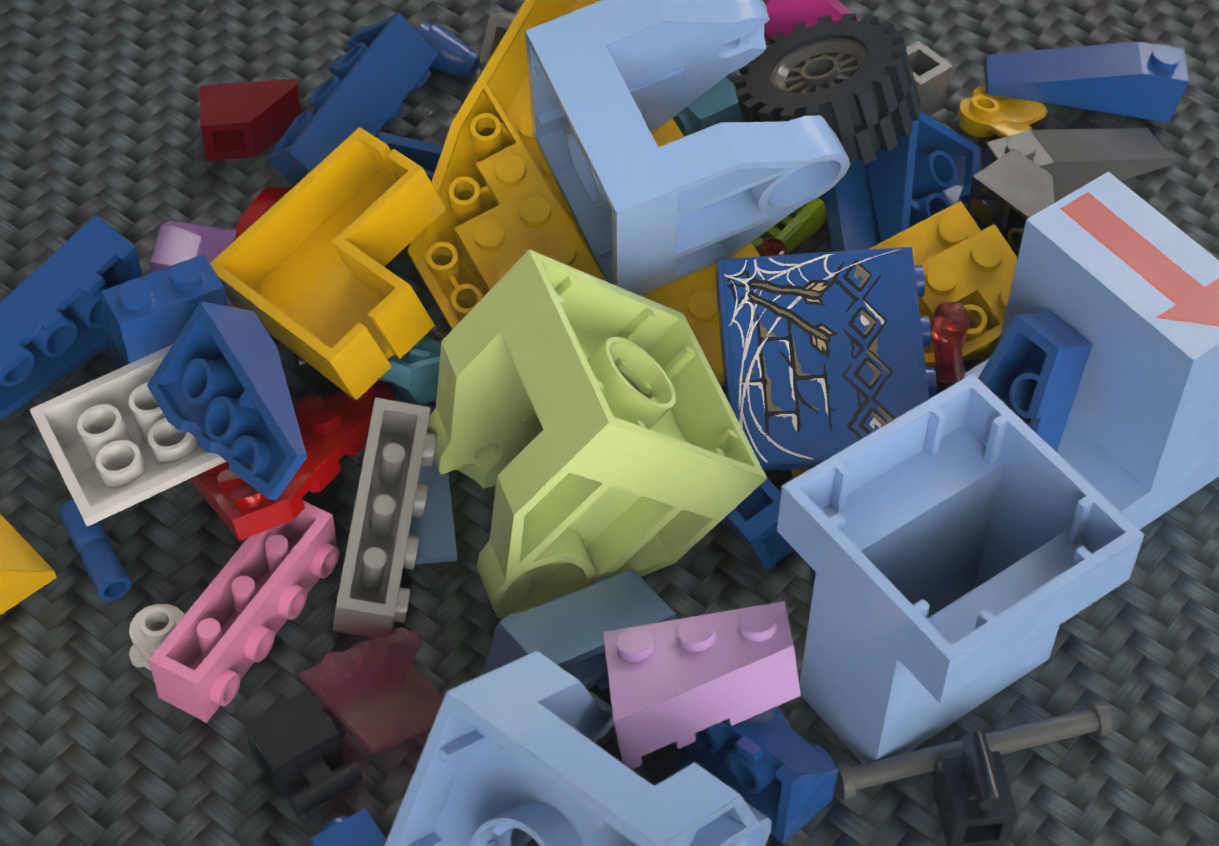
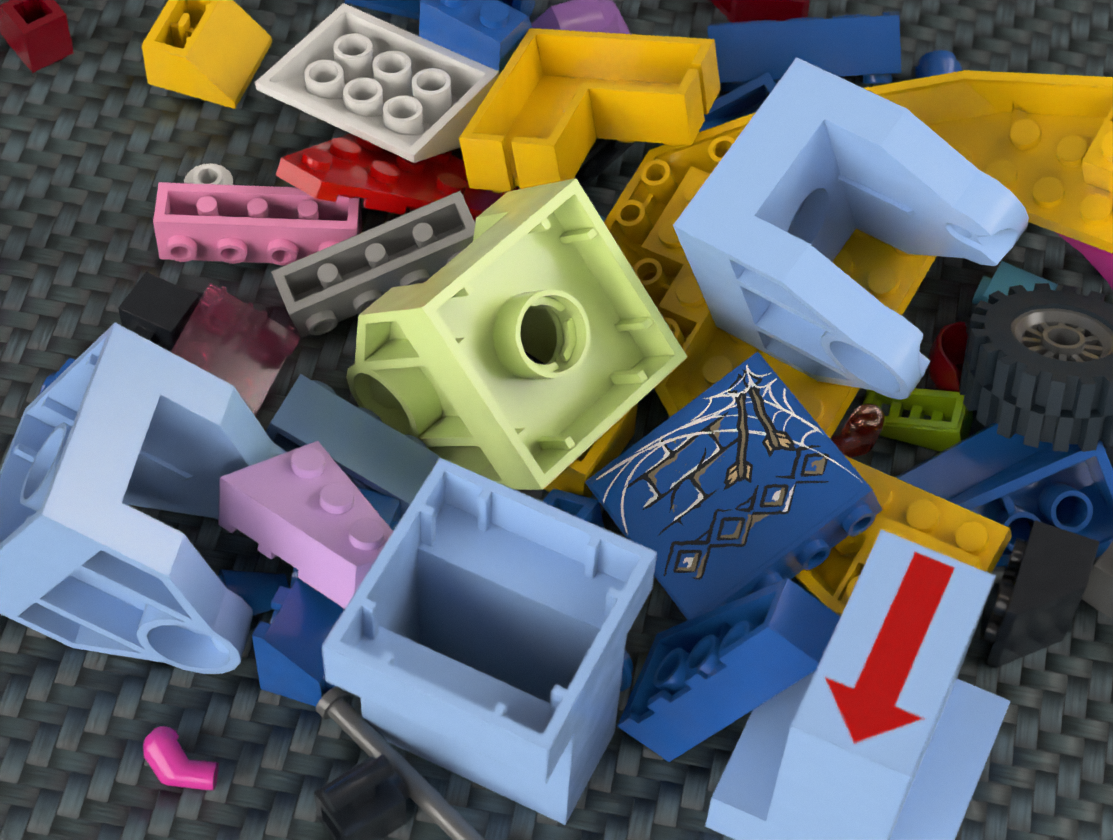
camera: 60 degrees right, 5 degrees up
(96, 554) = (261, 126): blue piece -> none
(232, 395) = (405, 91): blue wedge -> none
(947, 337) = (828, 573): clear red arm -> none

